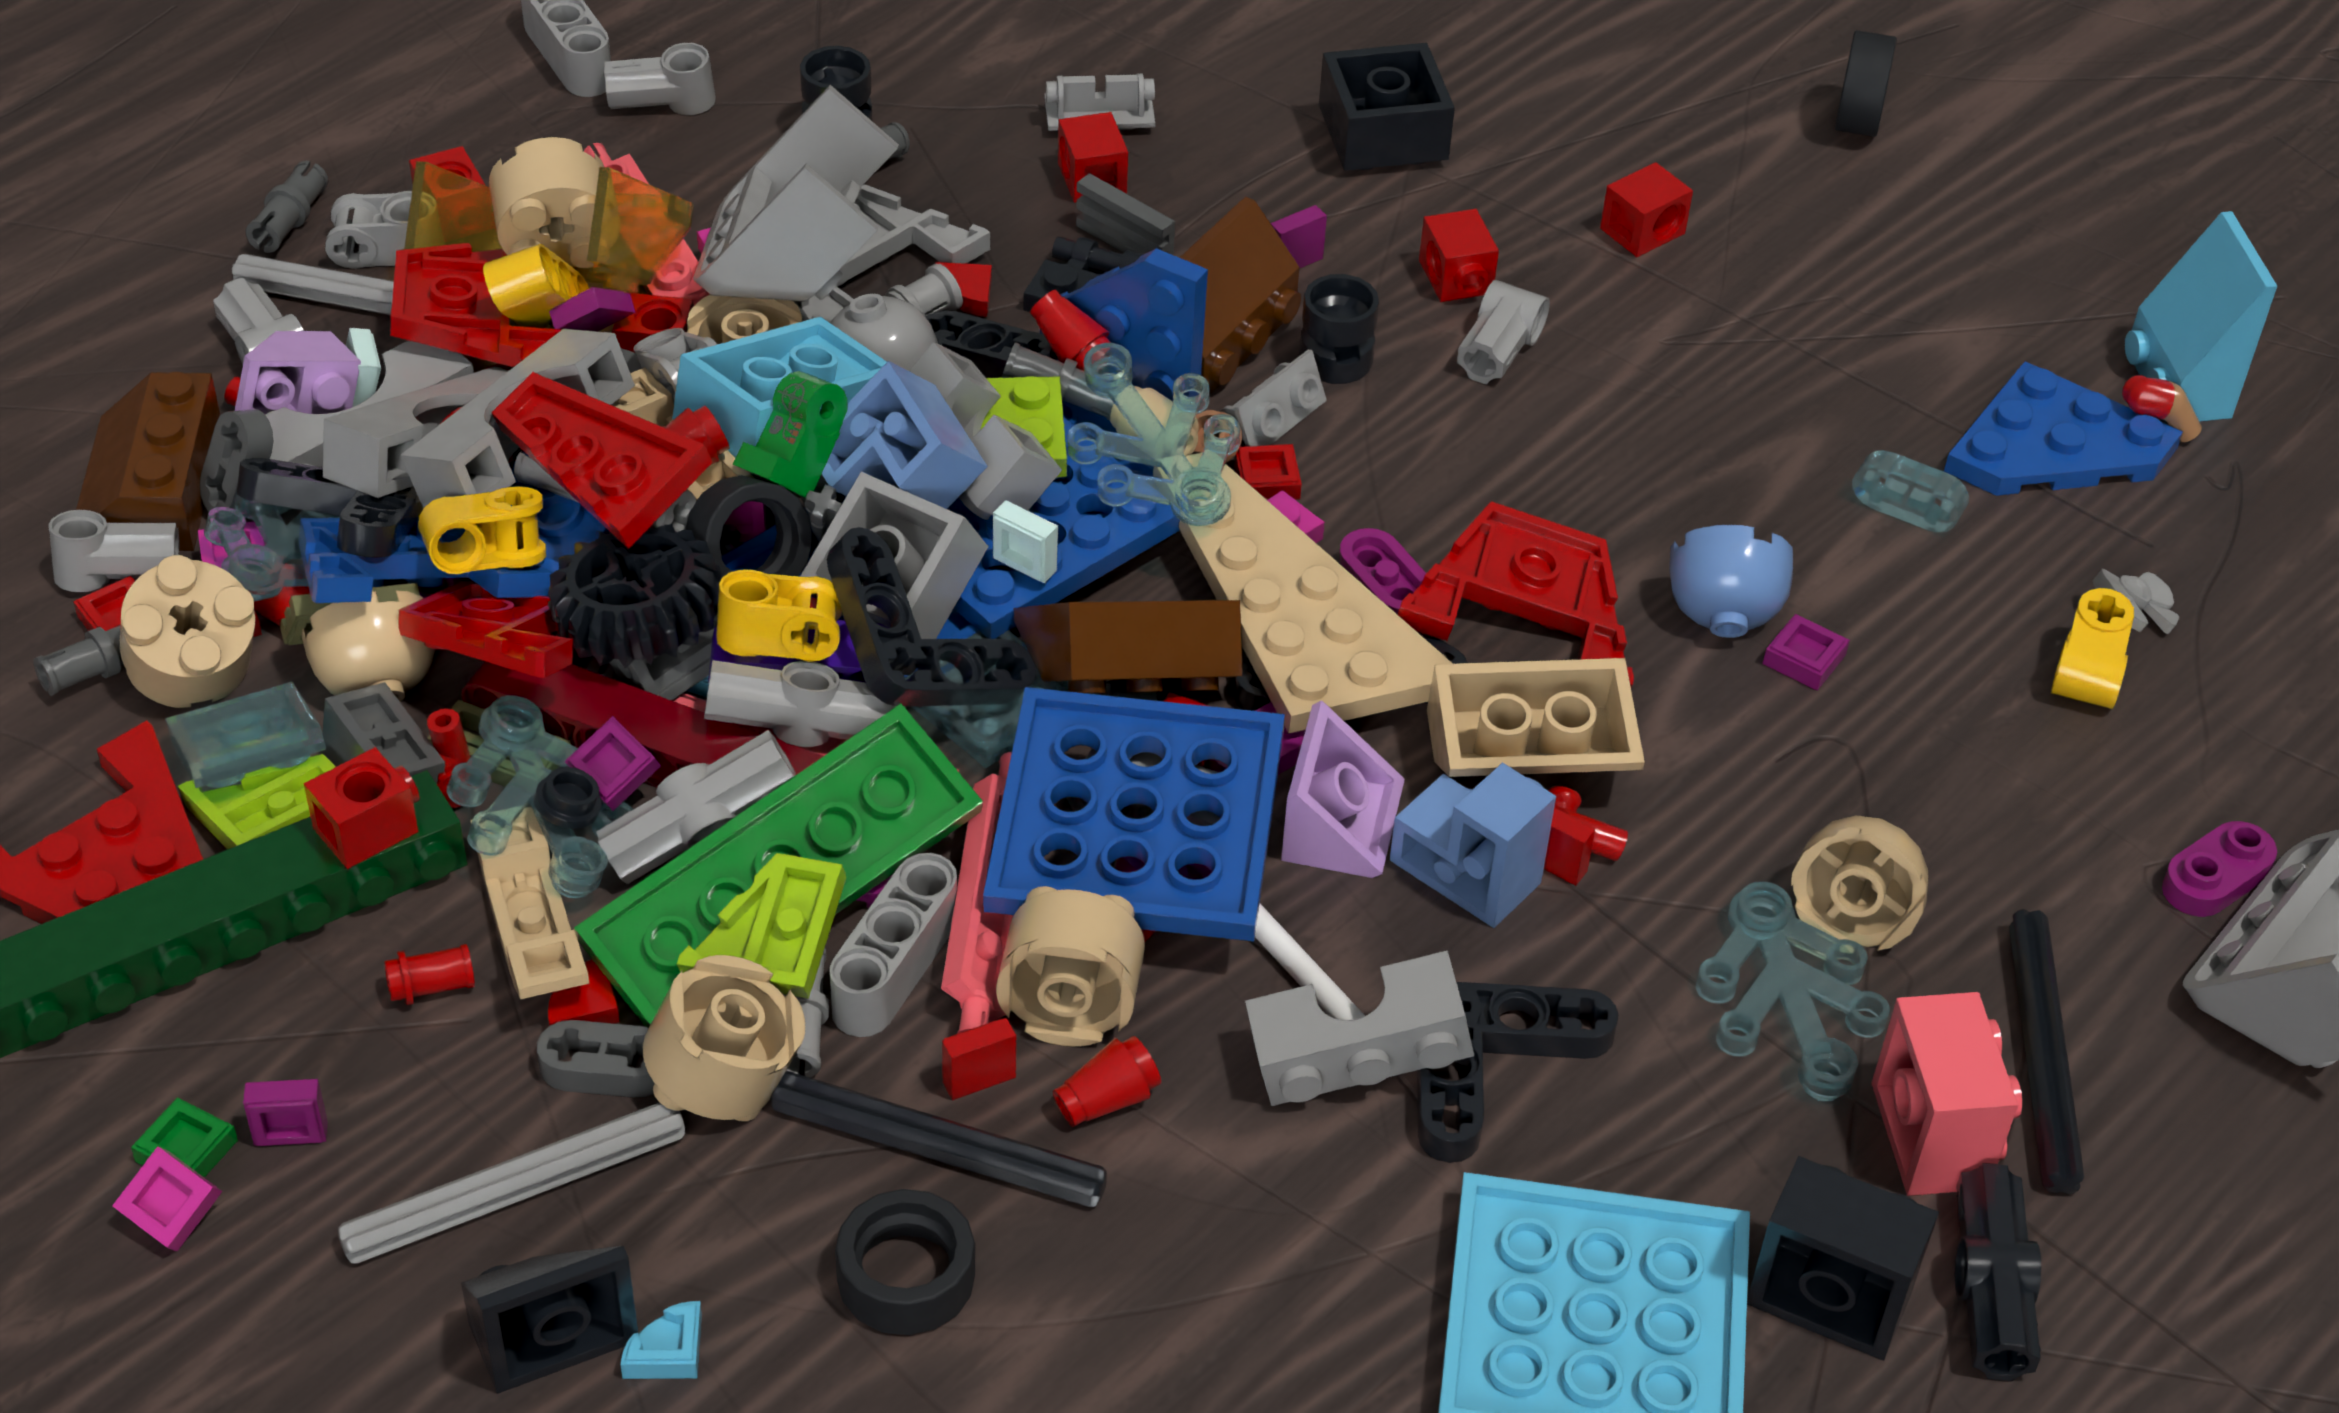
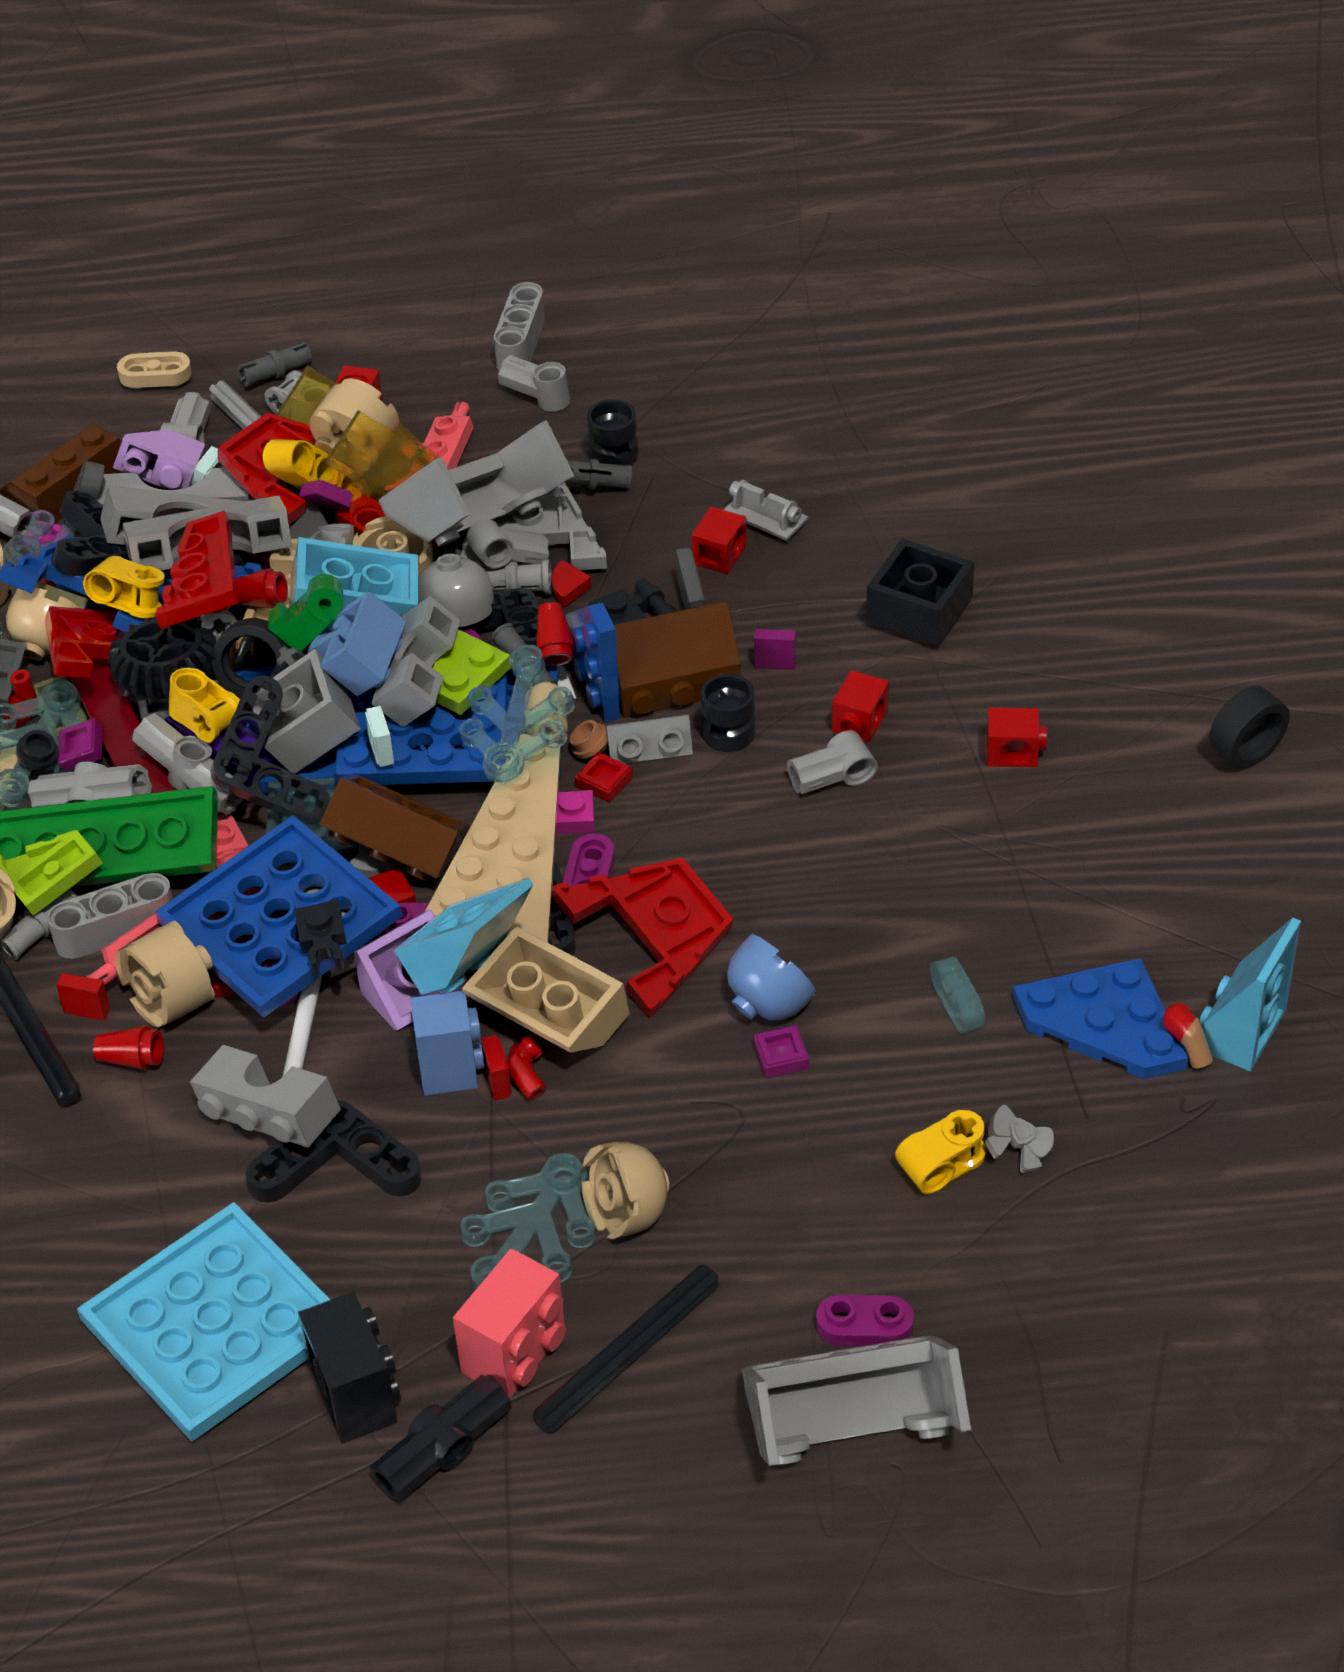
camera: 45 degrees right, 0 degrees up
(123, 283) = (154, 369): none -> tan plate
(877, 270) = (501, 545): none -> light grey piece
(1239, 792) = (321, 933): none -> black plate
(1416, 696) = (461, 937): none -> medium azure slope

